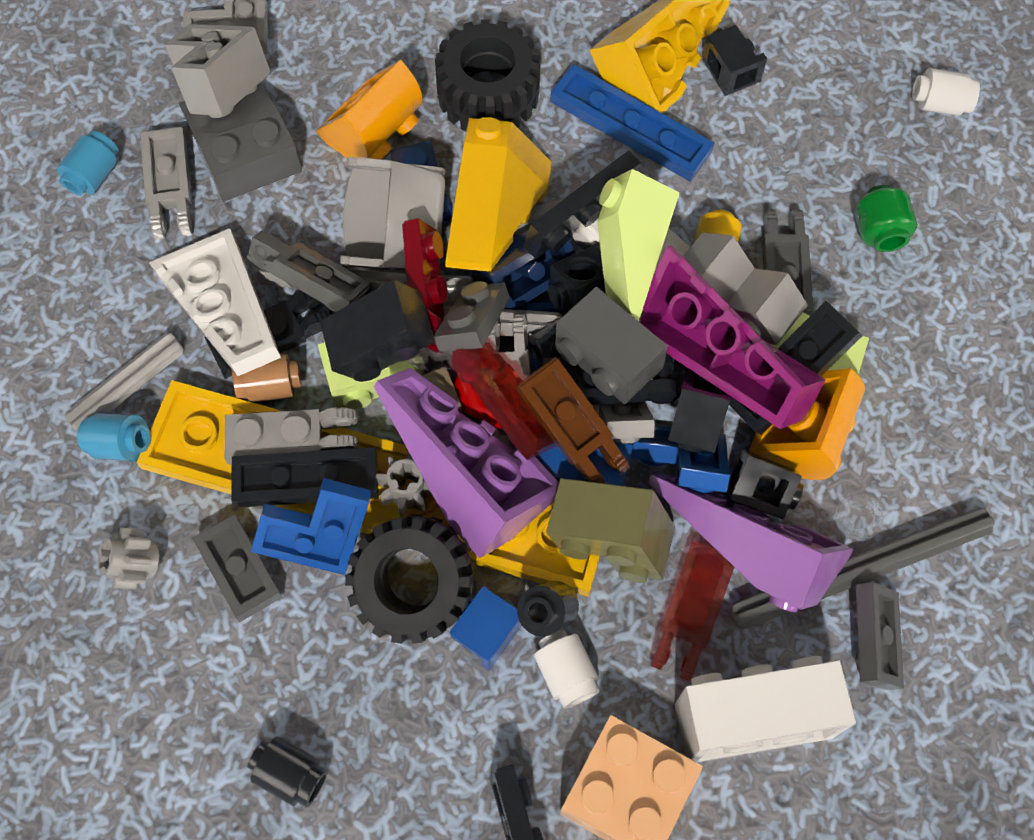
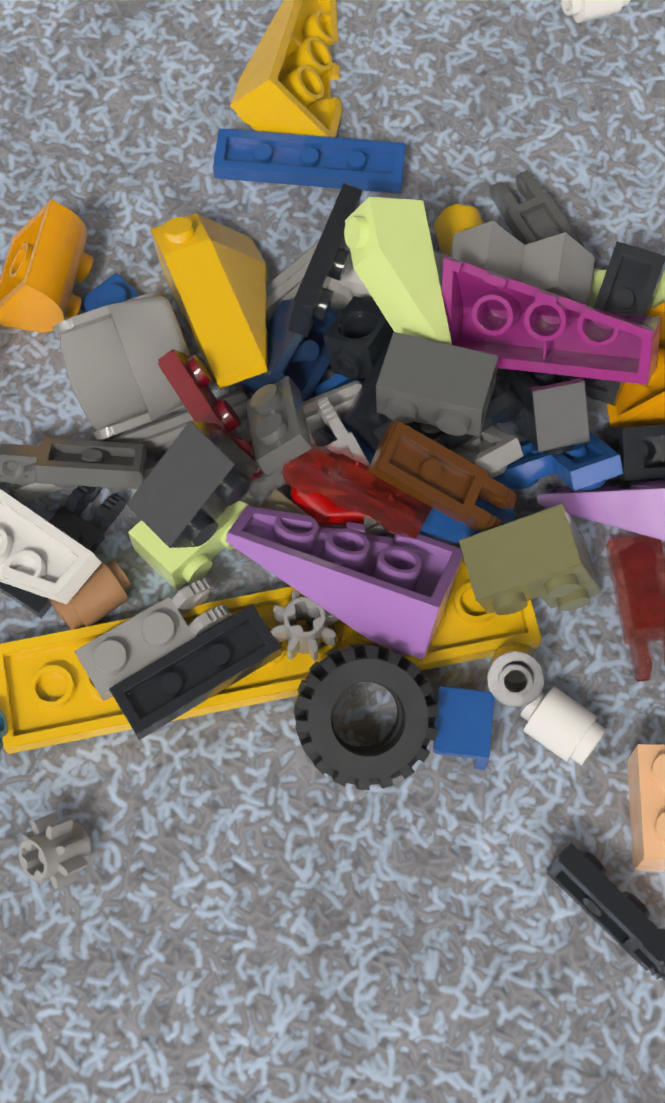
camera: 25 degrees left, 0 degrees up
(236, 569) = (173, 800): dark grey plate -> none
(287, 772) = (348, 975): black brick -> none
(317, 539) = (249, 724): blue plate -> none
(487, 49) = (133, 149): black tyre -> none
(733, 60) = (374, 53): black brick -> none
(885, 218) = (610, 141): green head -> none

